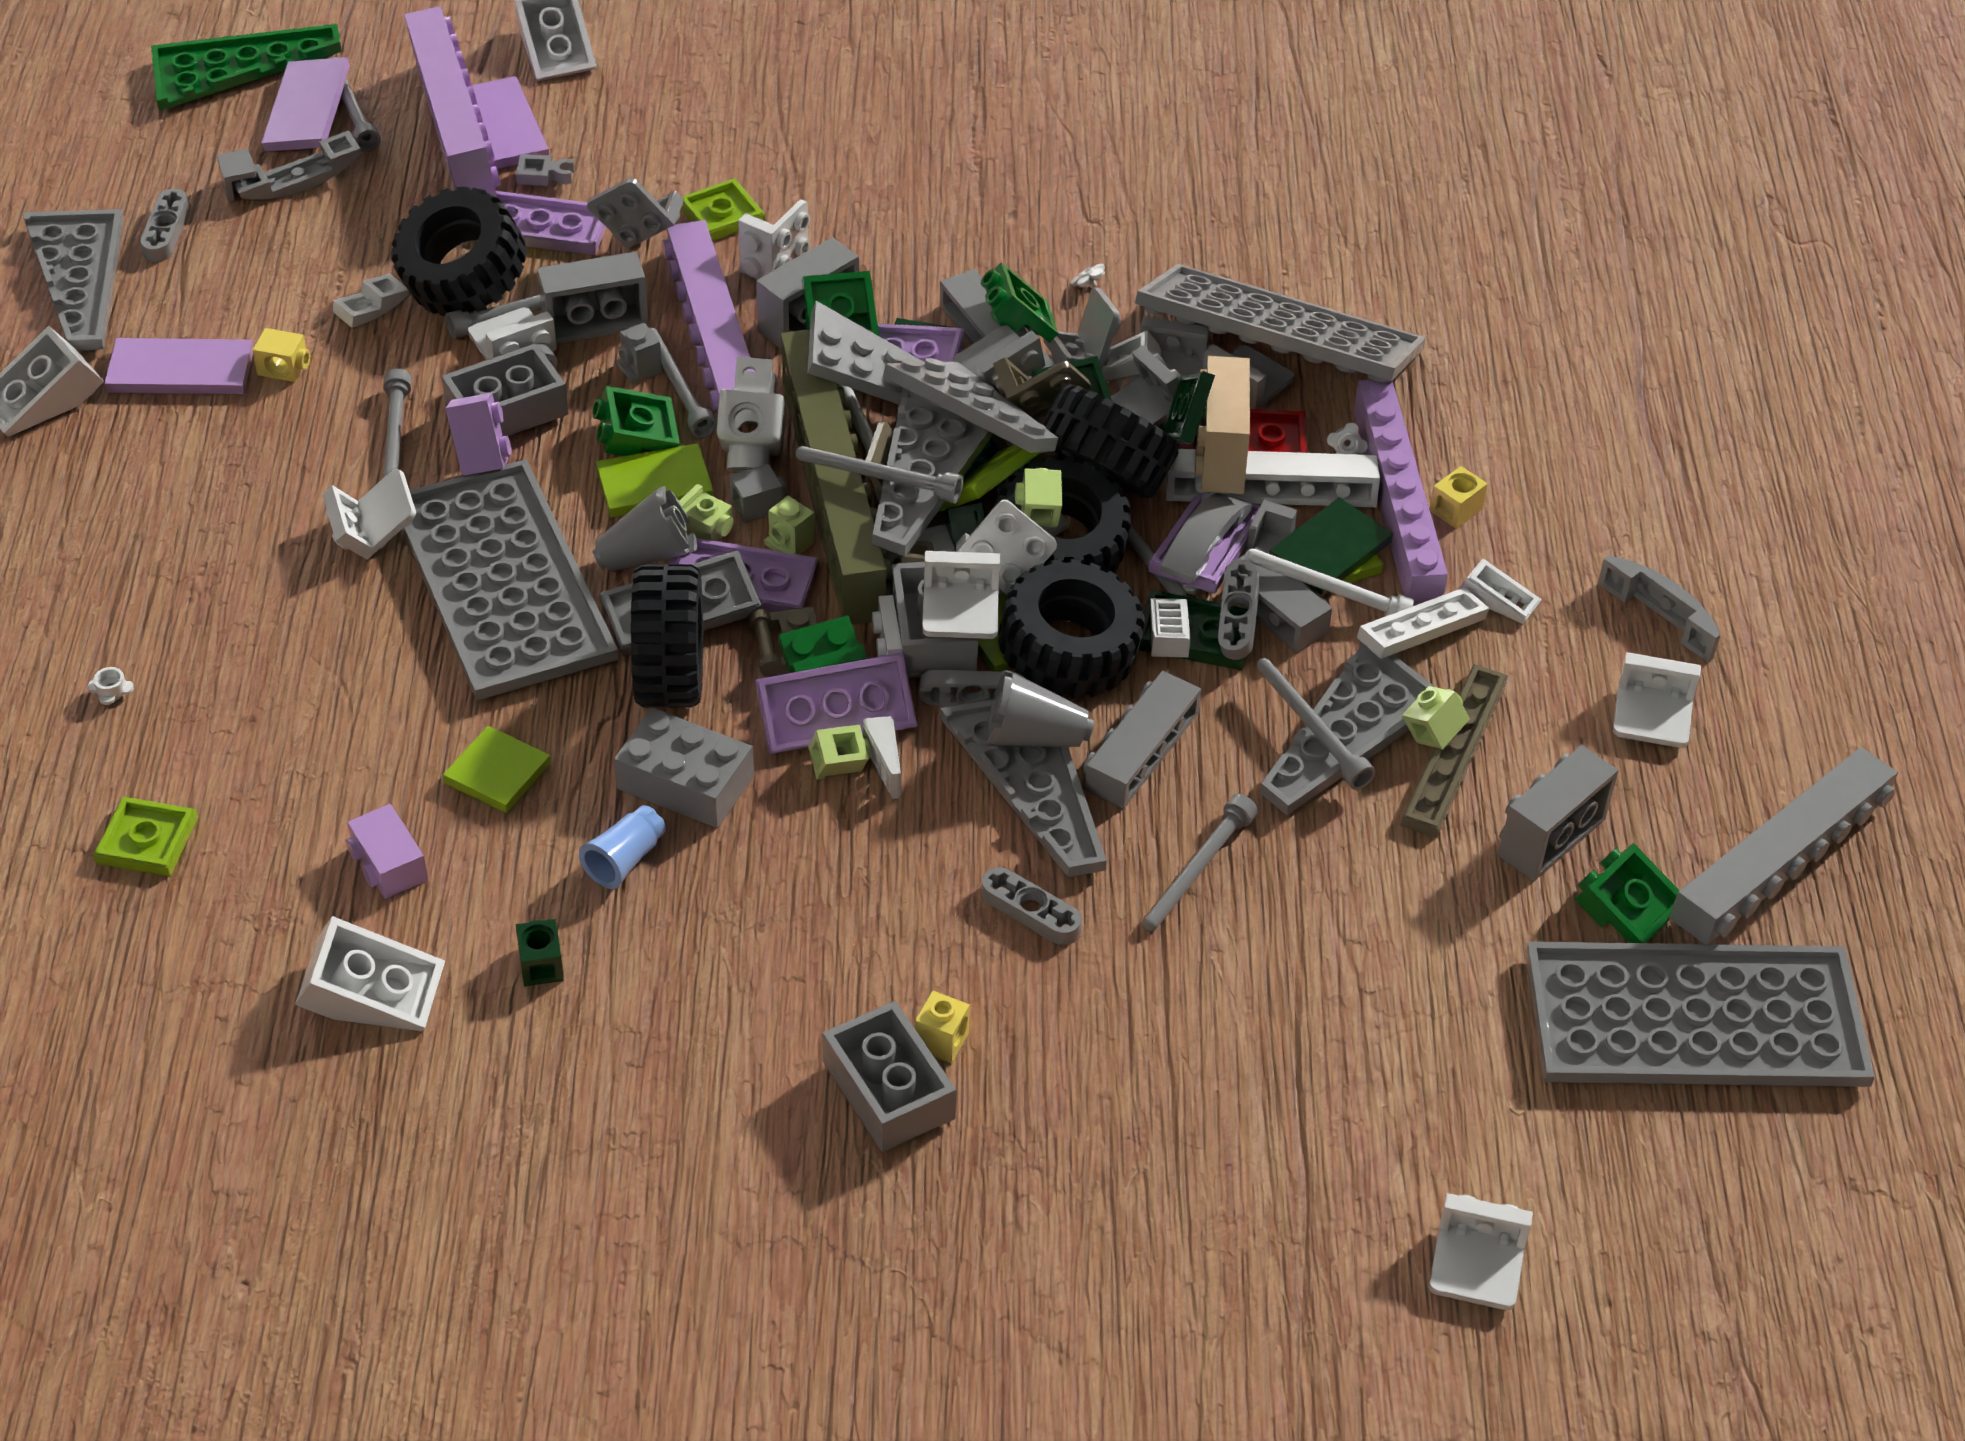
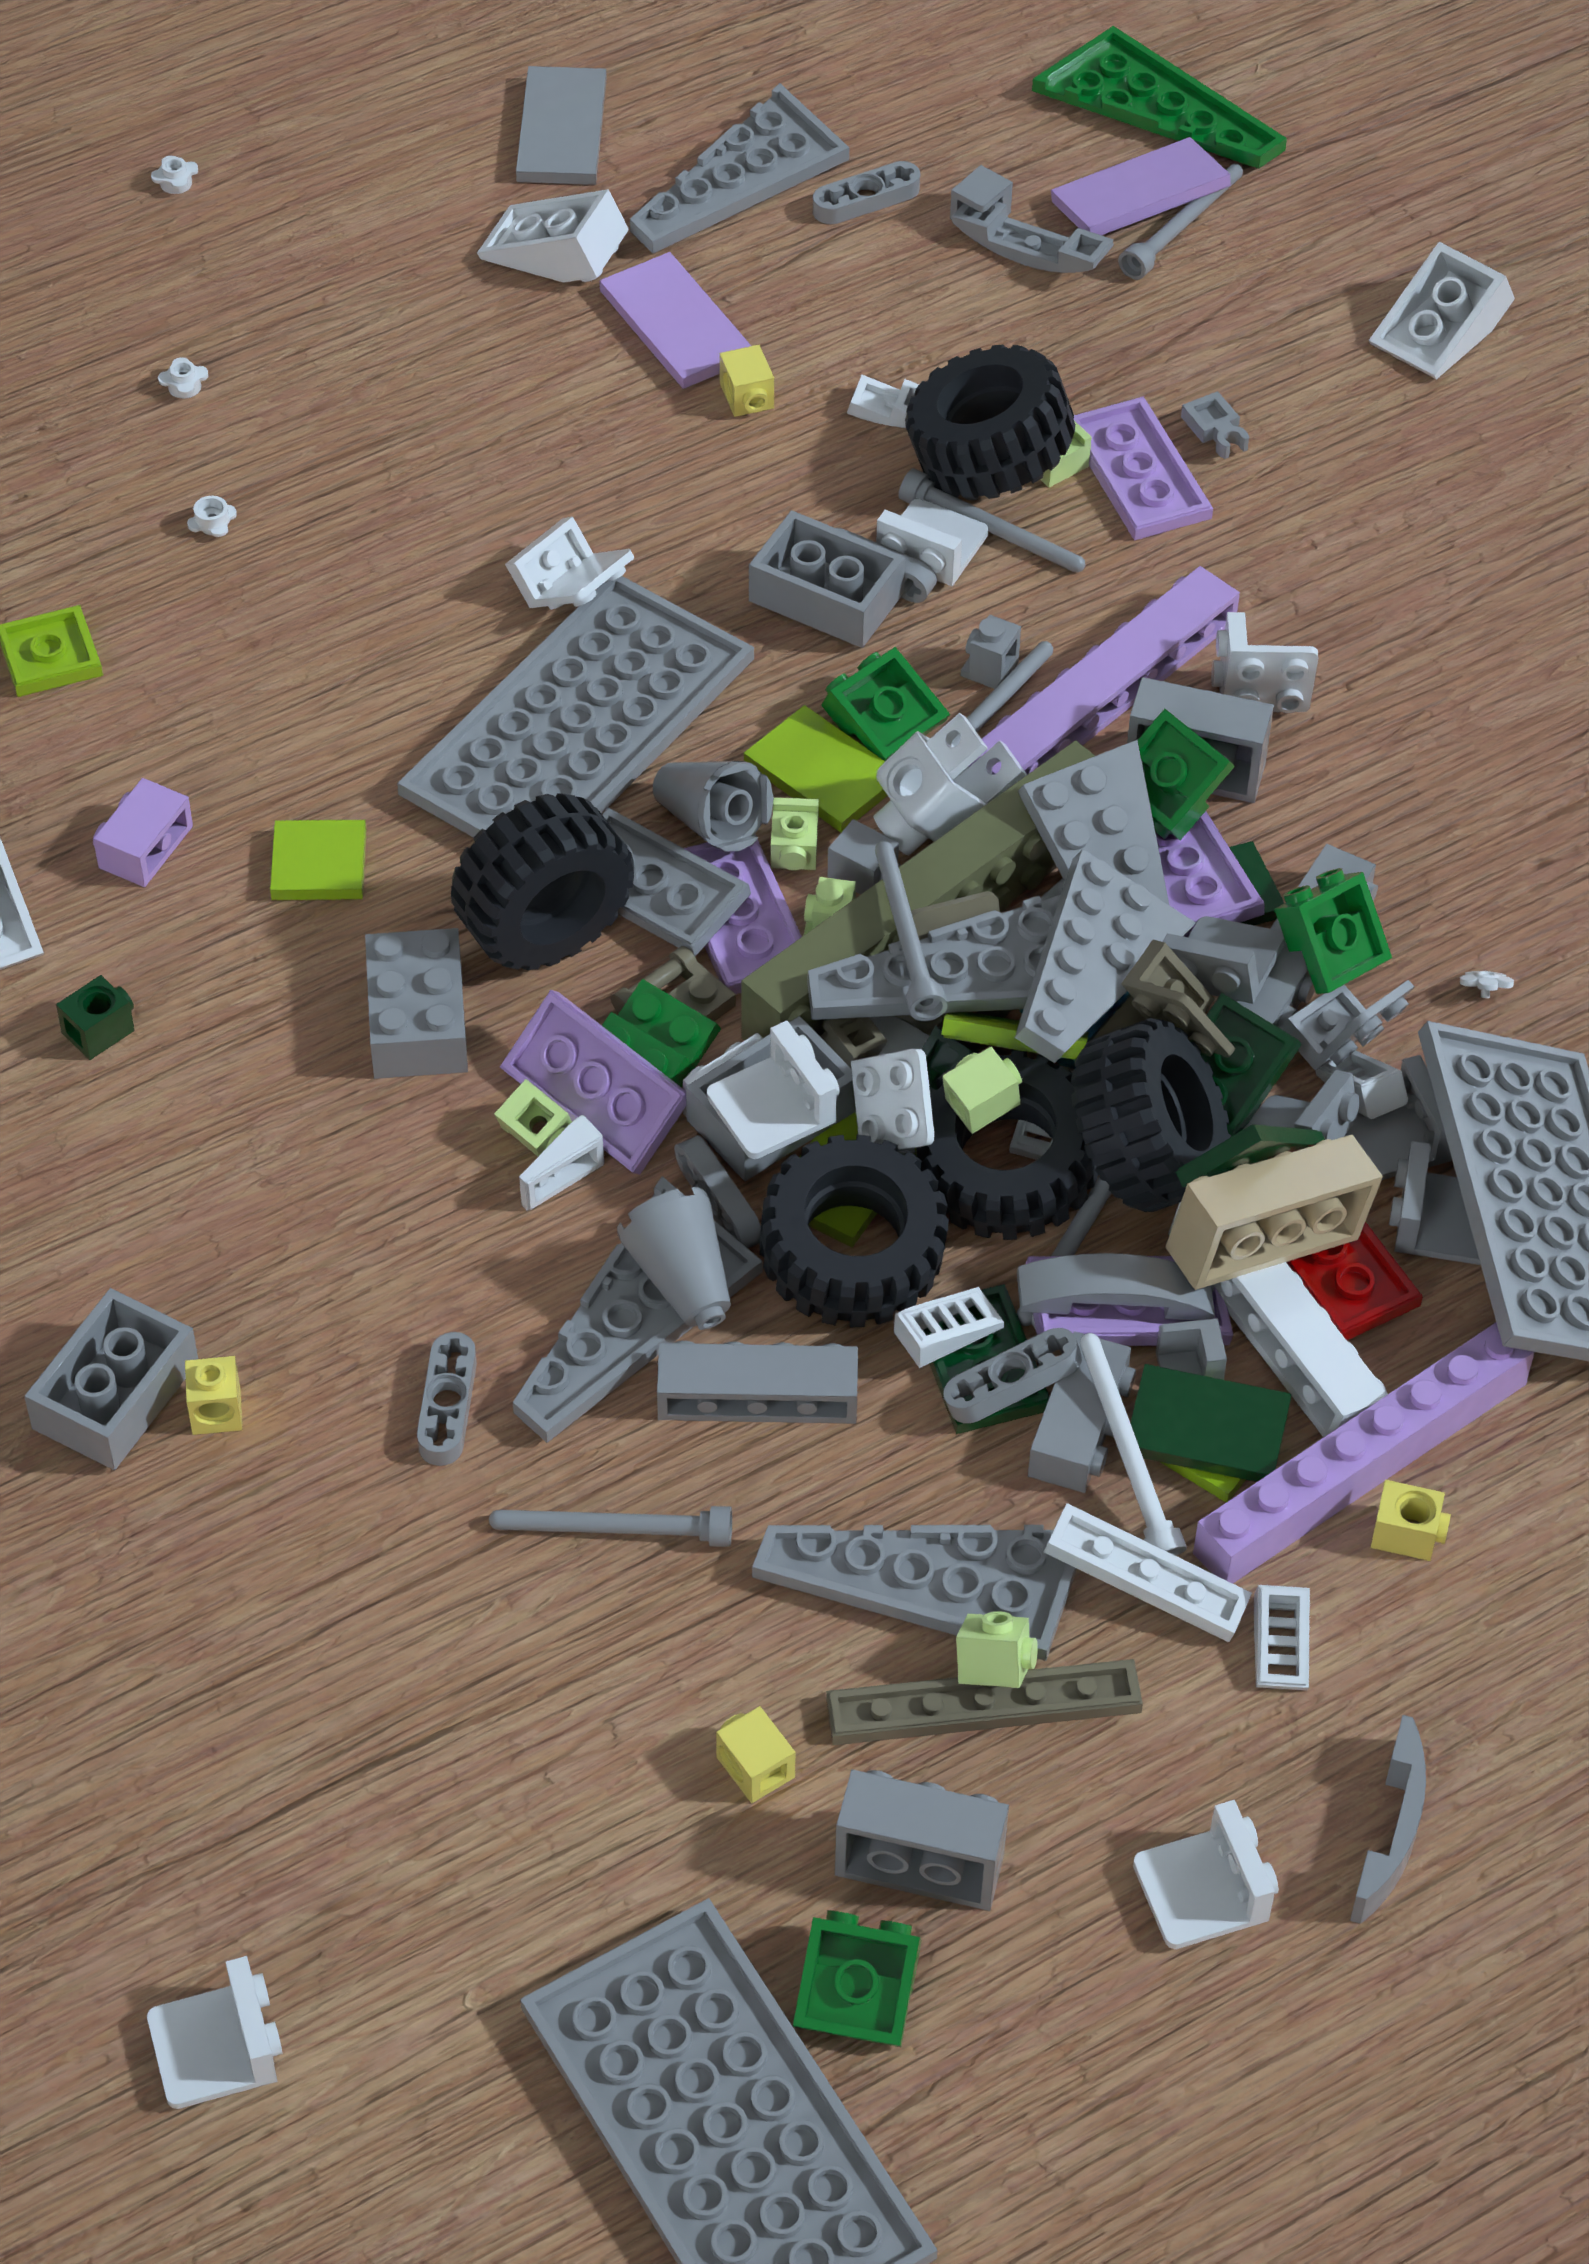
camera: 60 degrees right, 5 degrees up
(397, 386) = (783, 492): light grey piece -> none
(452, 101) = (1218, 292): lavender brick -> none
(478, 433) = (731, 583): lavender brick -> none
(509, 121) = (1268, 352): lavender tile -> none
(594, 296) = (1029, 566): light grey brick -> none
(621, 847) = (277, 1009): light blue plant -> none
(633, 213) = (1180, 535): light grey bracket -> none
(721, 207) = (1299, 603): lime tile -> none
(1349, 432) = (1418, 1357): white plate -> none
(1355, 769) = (848, 1606): light grey piece -> none
(1430, 871) = (755, 1753): none -> light yellow brick
(1783, 846) = (1058, 2116): light grey brick -> none

